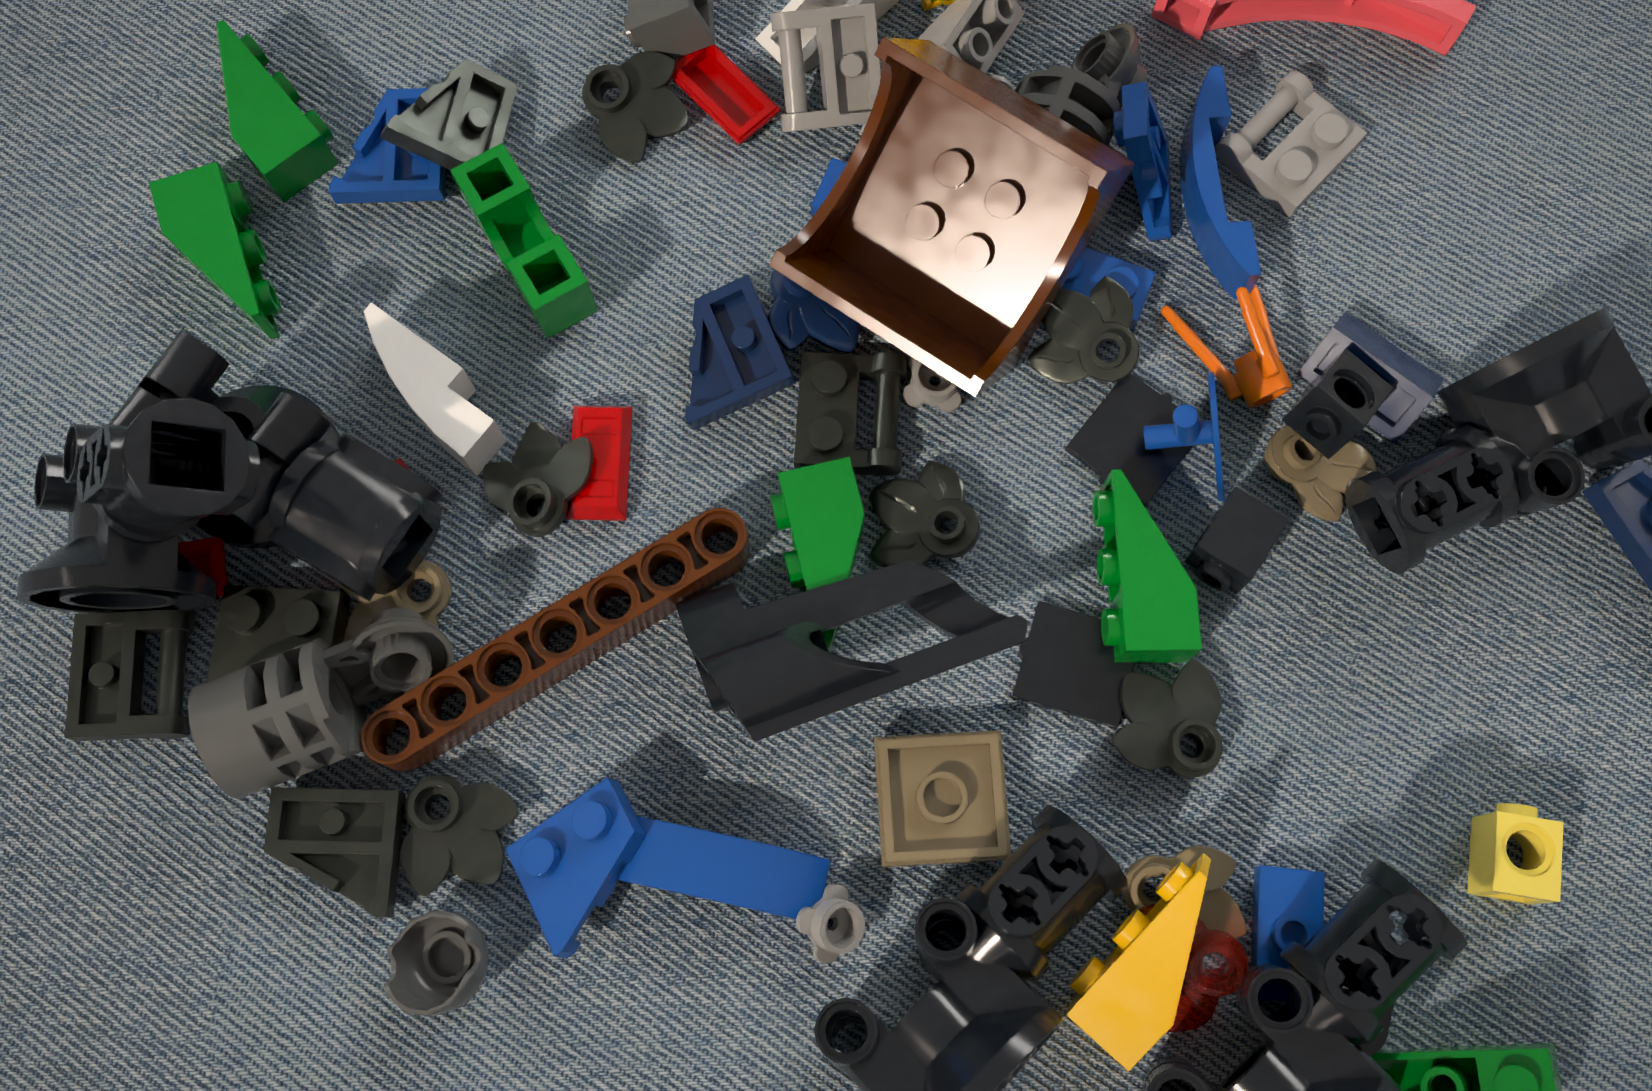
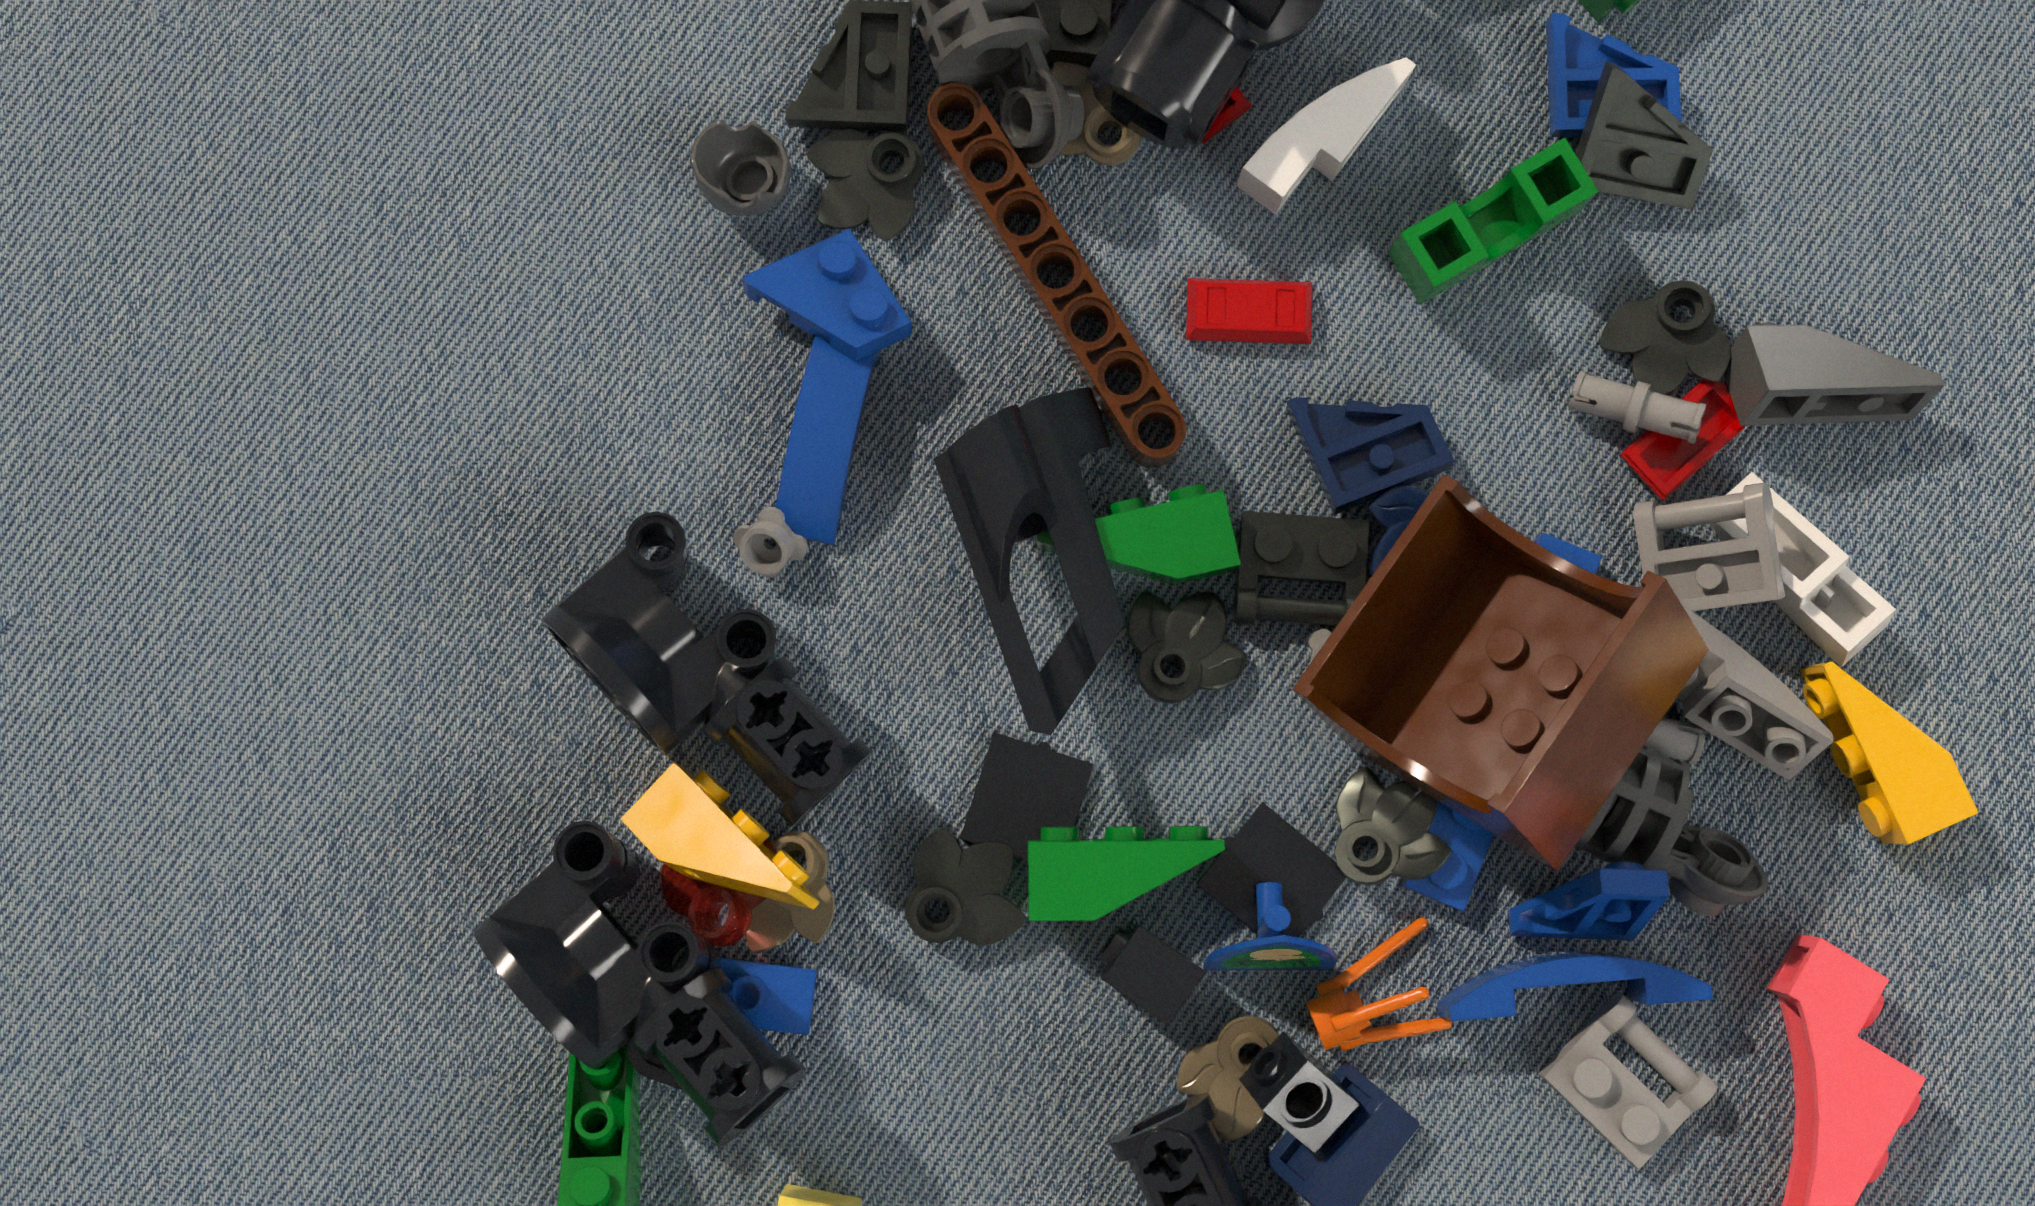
camera: 90 degrees right, 10 degrees up
(538, 473) = (1234, 246): pearl dark grey plate -> none
(698, 125) = (1637, 407): none -> light grey pin
(941, 799) = (888, 654): dark tan plate -> none

